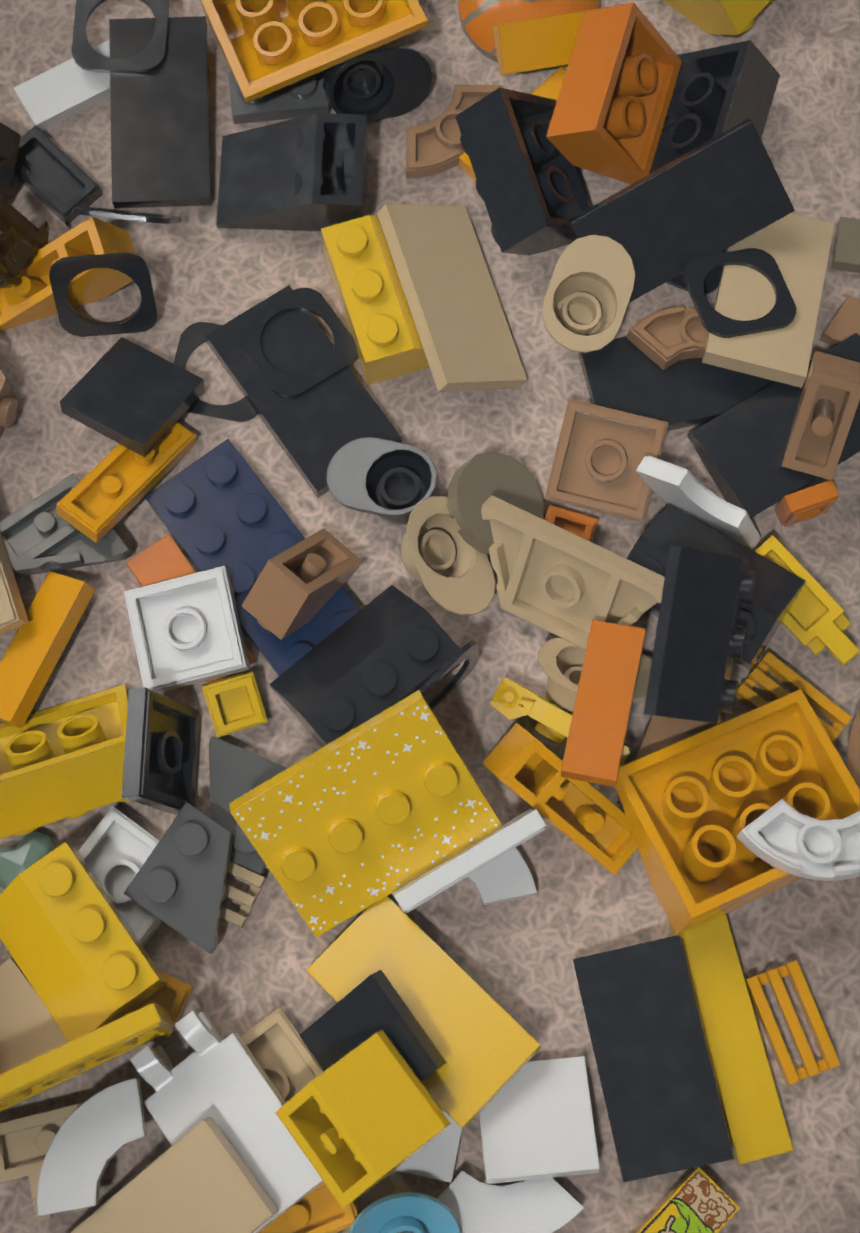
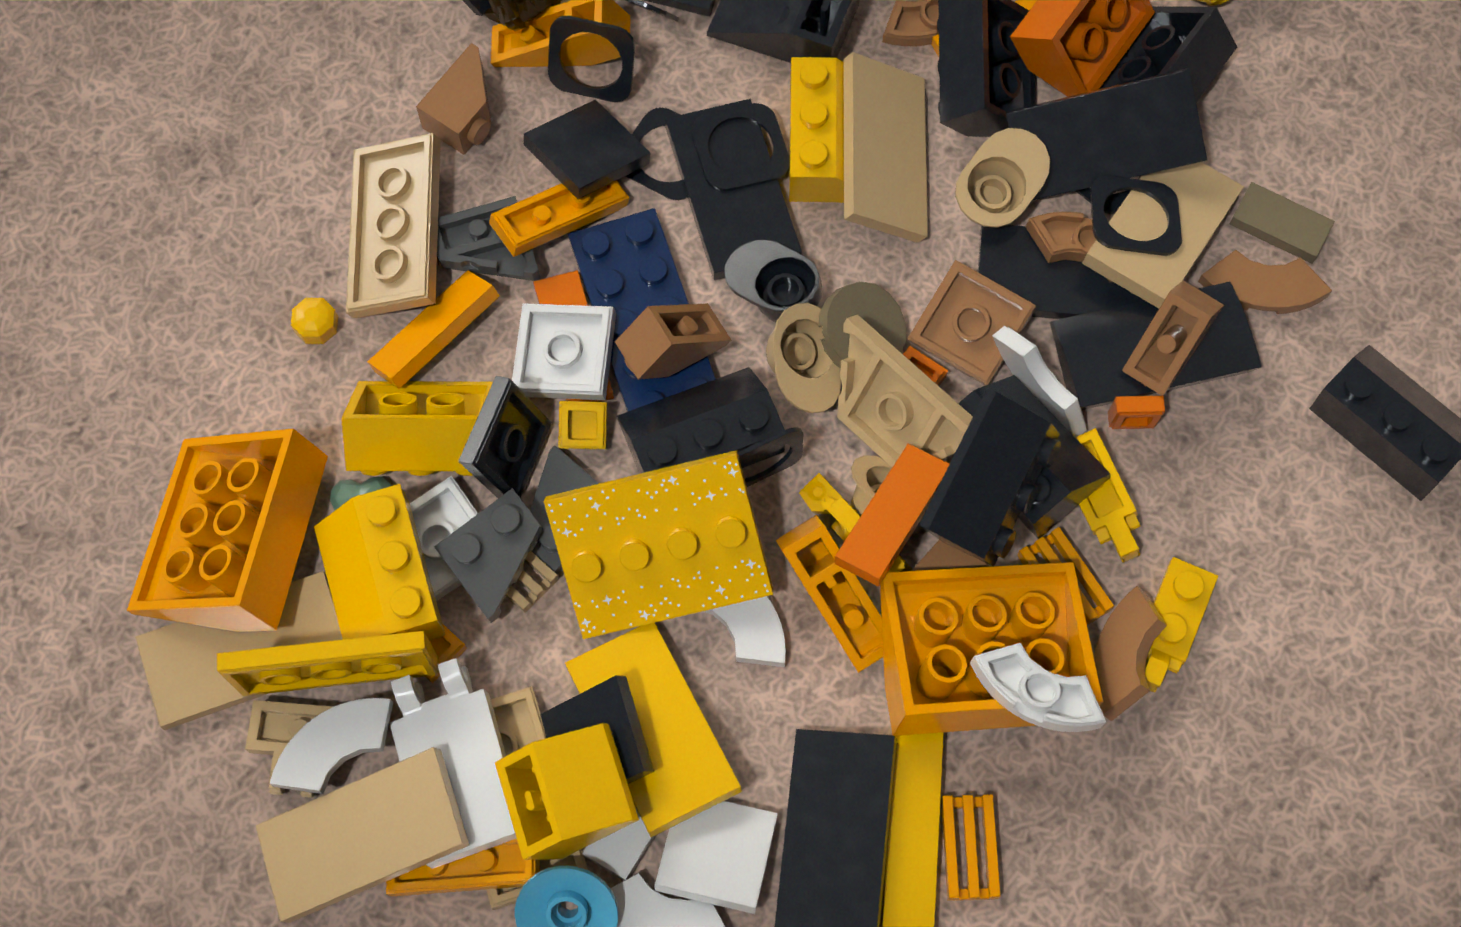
camera: 20 degrees right, 5 degrees down
(469, 860) = (733, 613): white tile -> none

